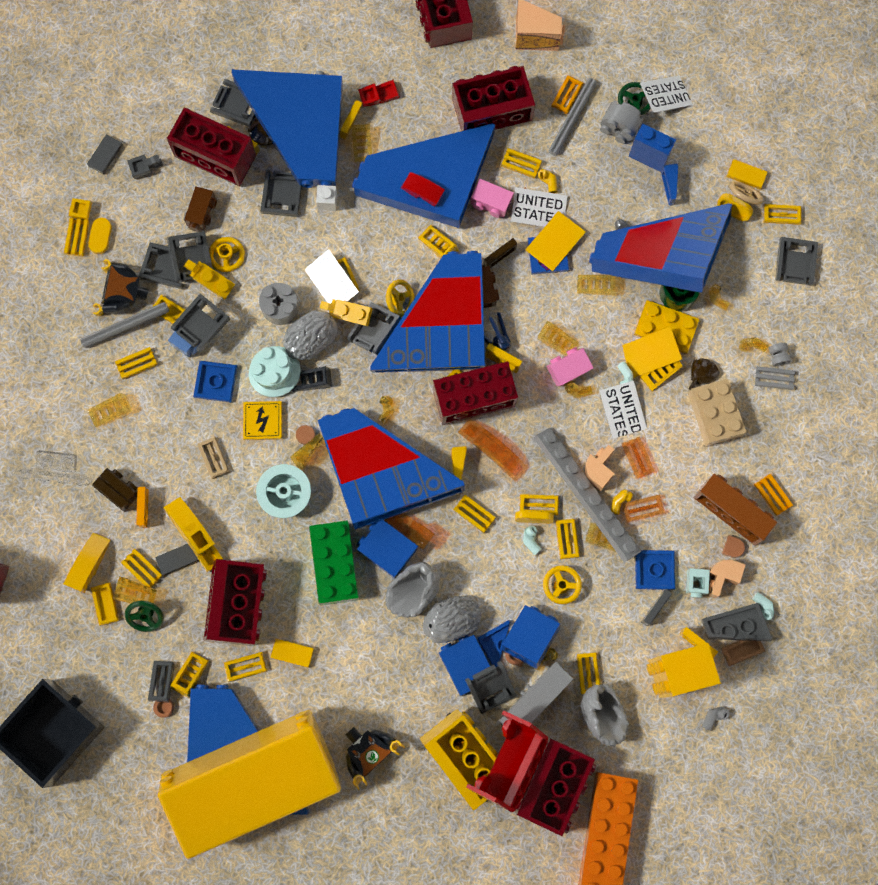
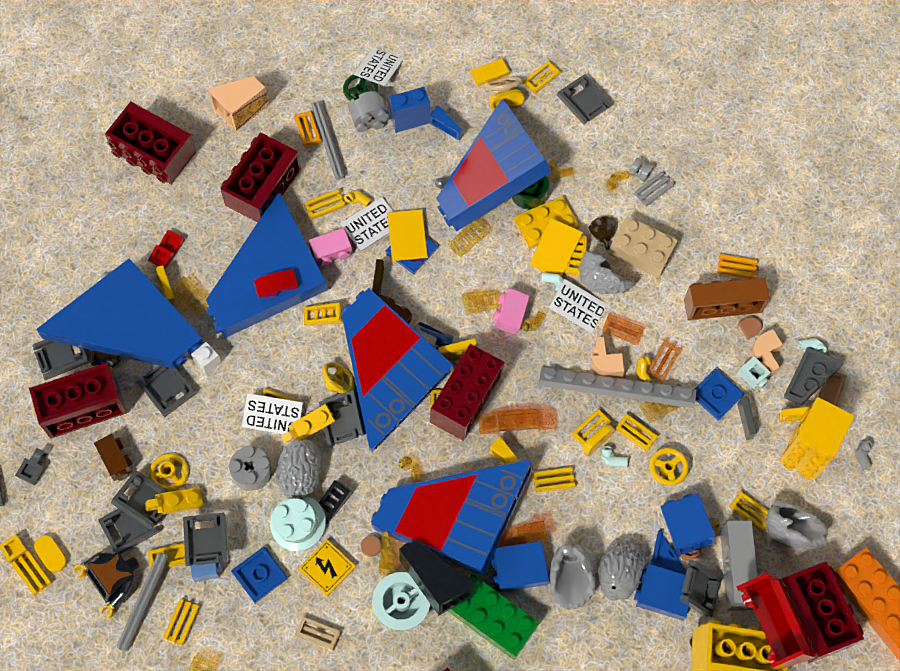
camera: 45 degrees left, 10 degrees down
(317, 502) = (436, 579): none -> black slope
(661, 404) = (600, 277): none -> light grey hair

